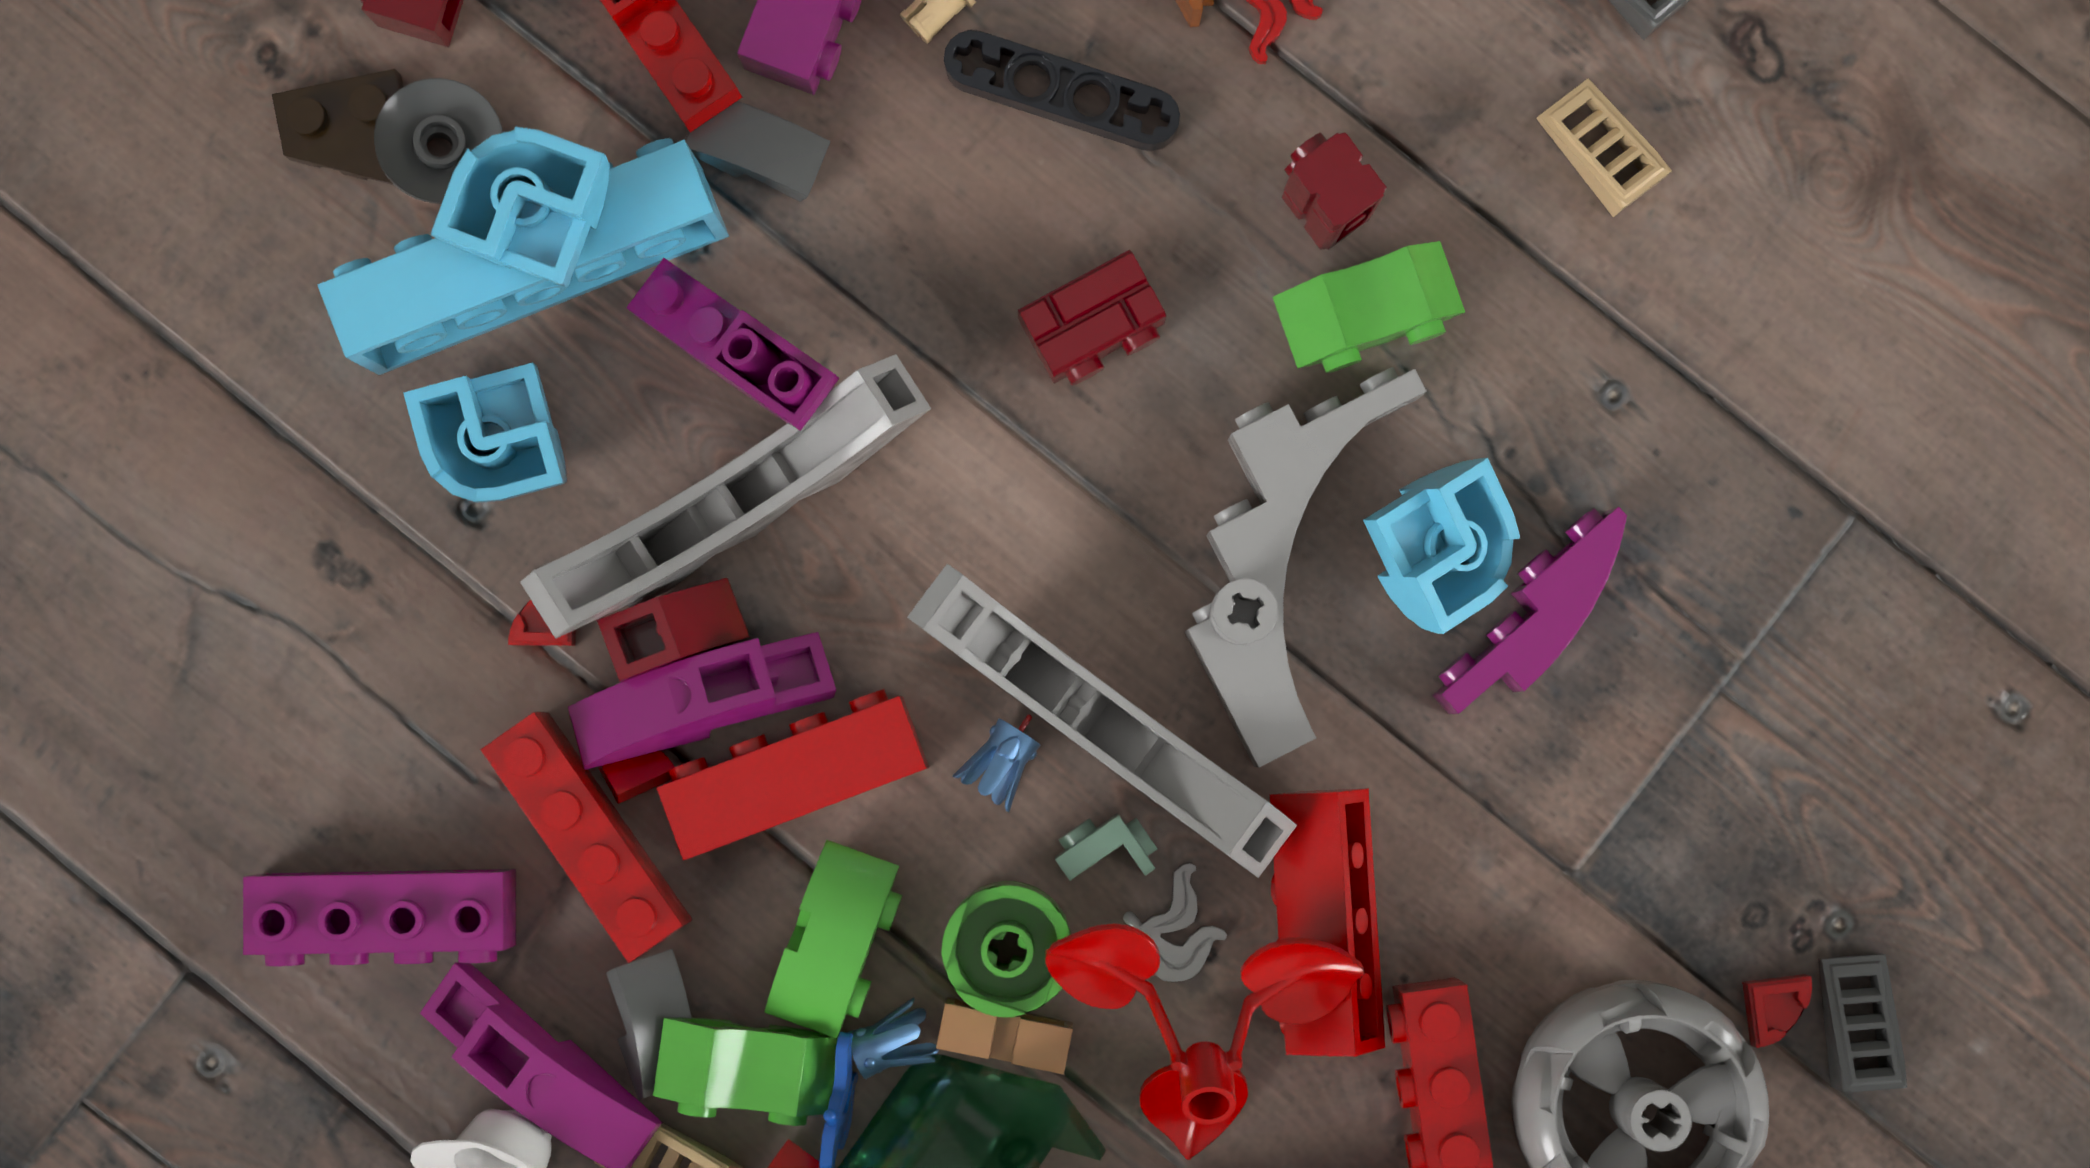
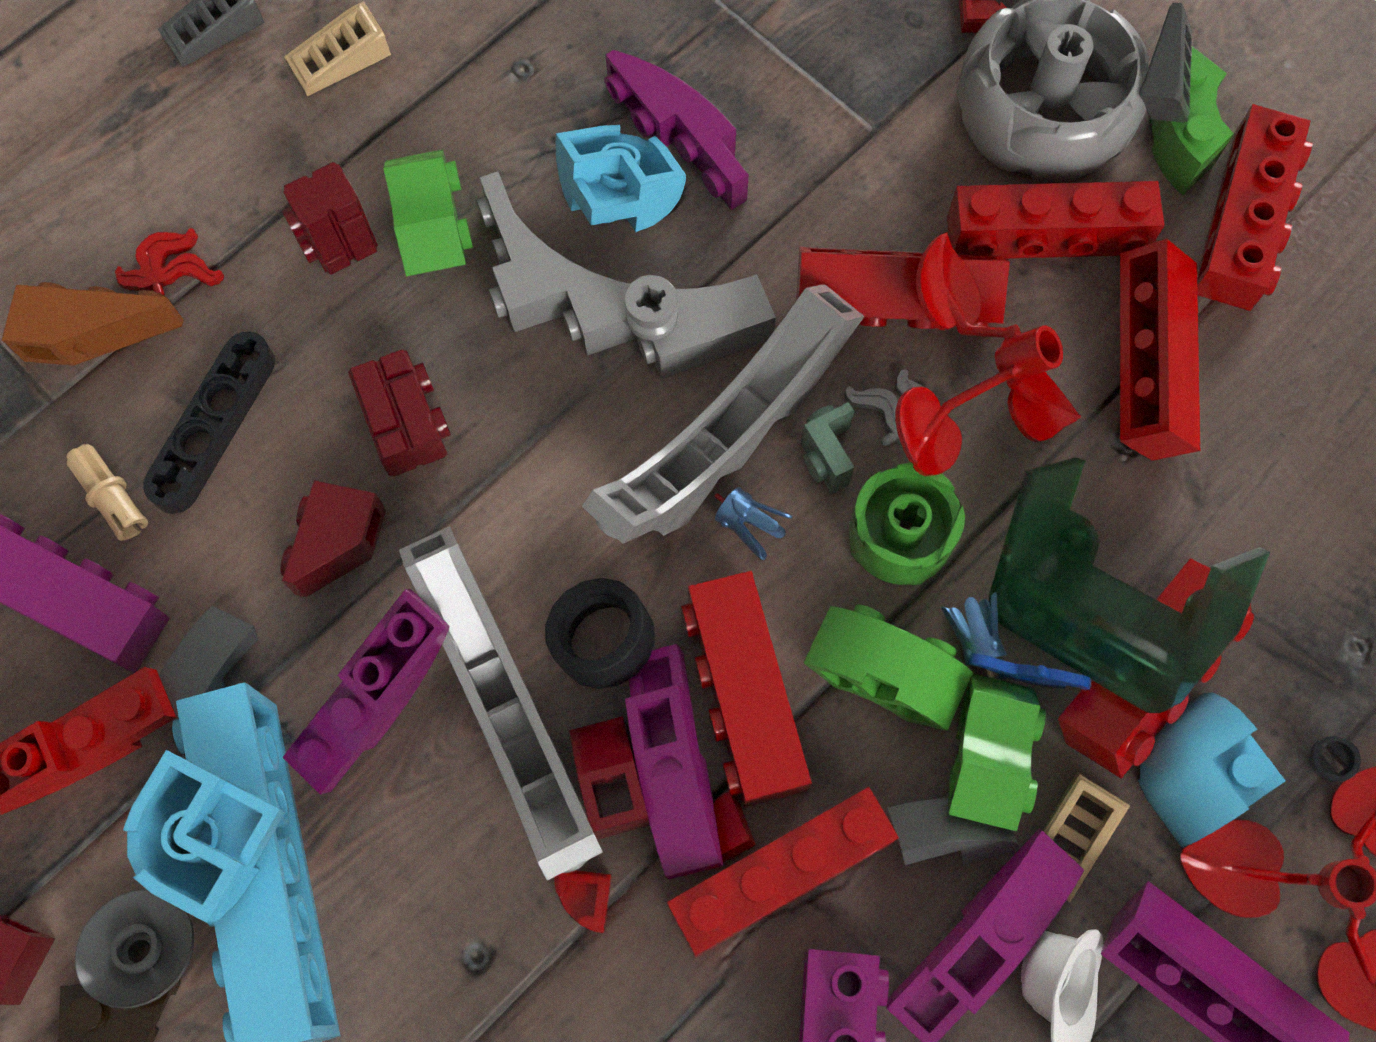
camera: 85 degrees left, 15 degrees down
(488, 435) = (410, 924): medium azure brick -> none
(849, 553) = (570, 612): none -> black tyre
(929, 269) = (333, 536): none -> dark red slope
(1022, 1039) = (974, 553): medium nougat piece -> none

